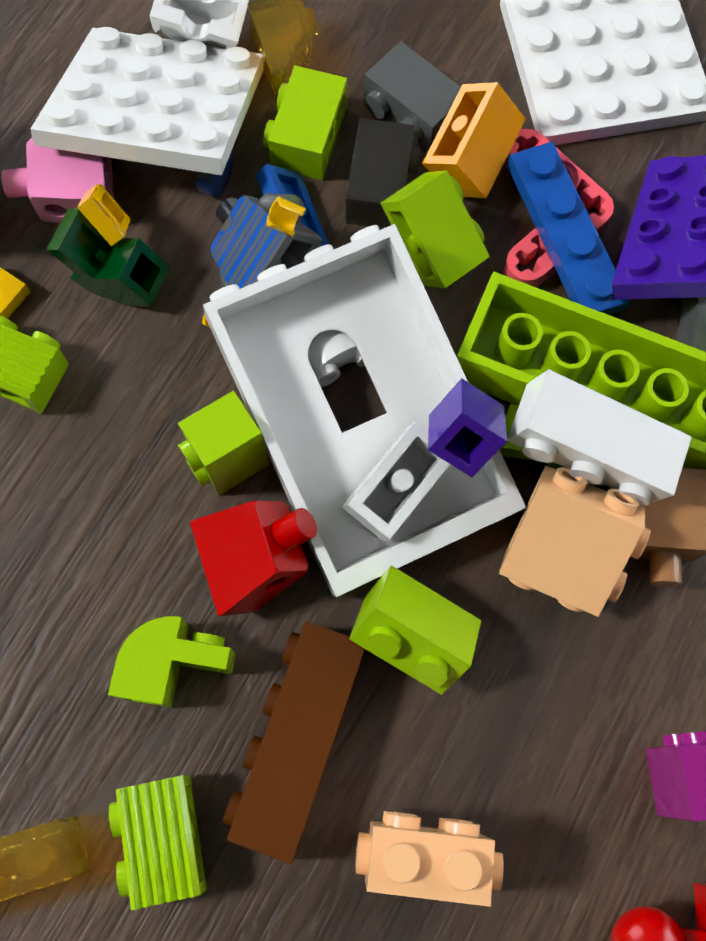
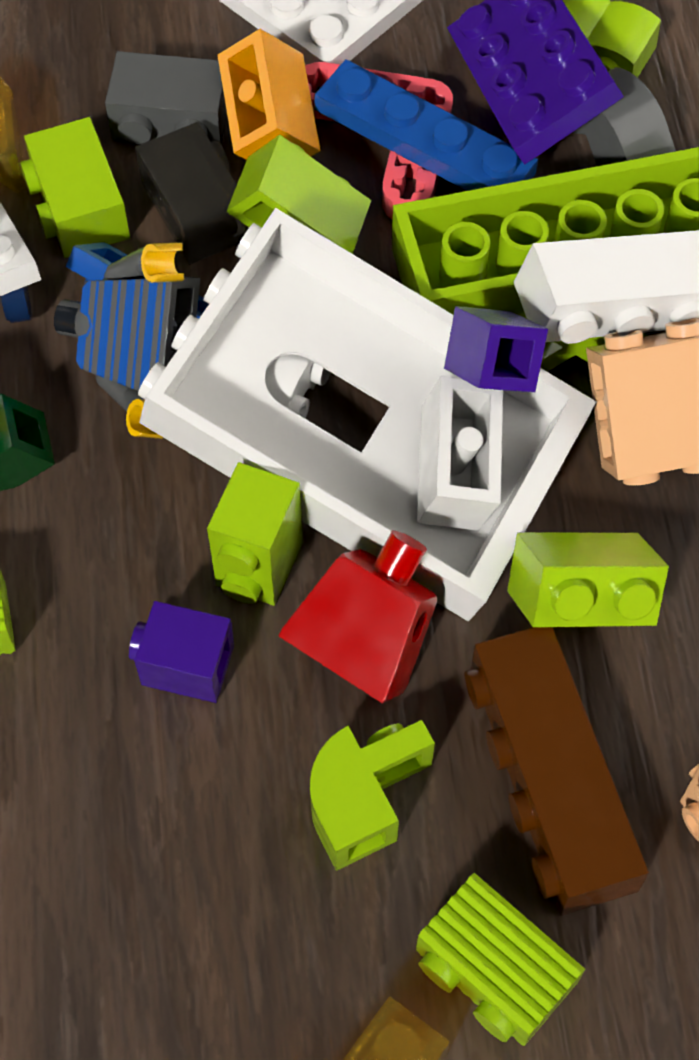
camera: 35 degrees left, 10 degrees down
(130, 488) = (182, 651): none -> dark purple brick

